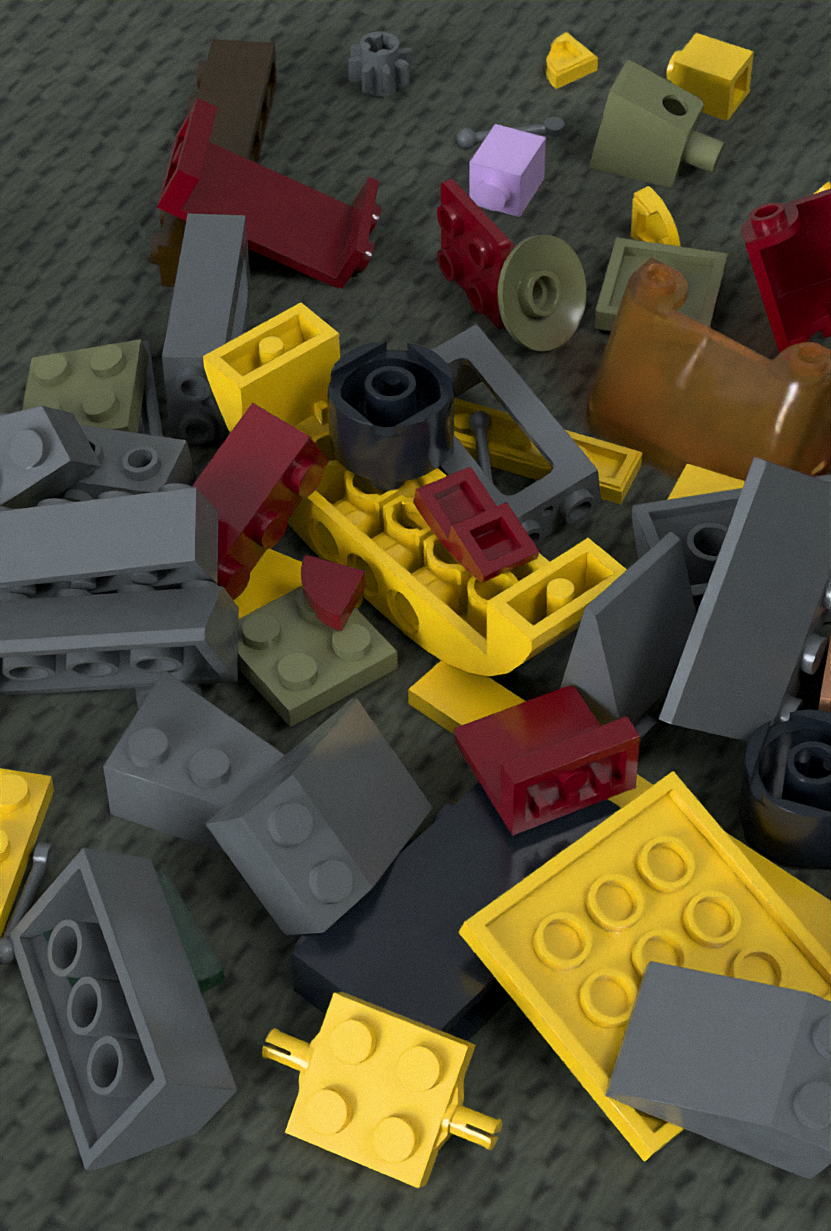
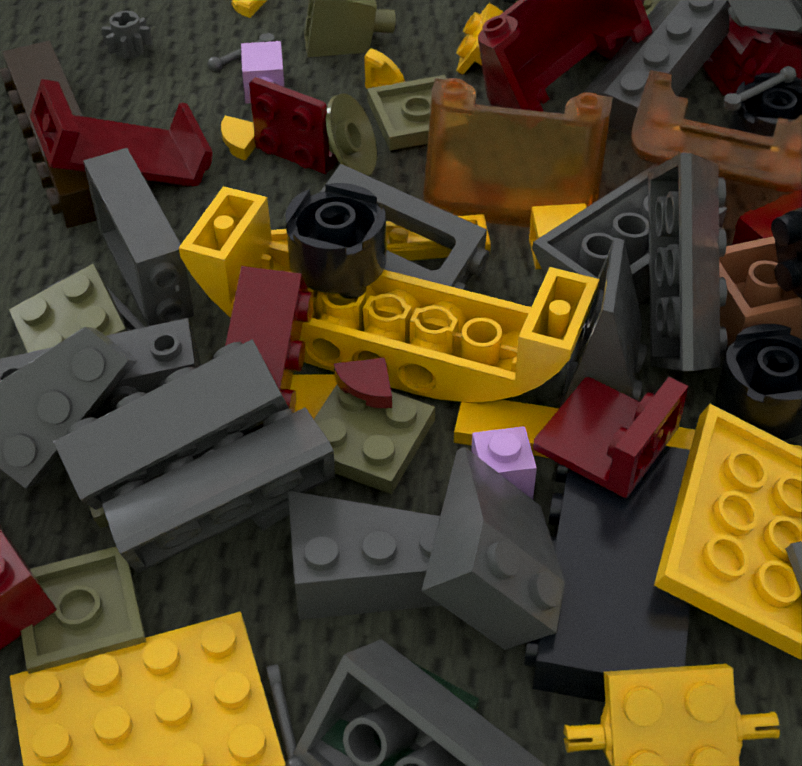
camera: 30 degrees left, 0 degrees up
(422, 244) = (238, 136): none -> yellow tile
(425, 744) = (508, 454): none -> lavender brick
(471, 526) = (455, 301): dark red slope -> none

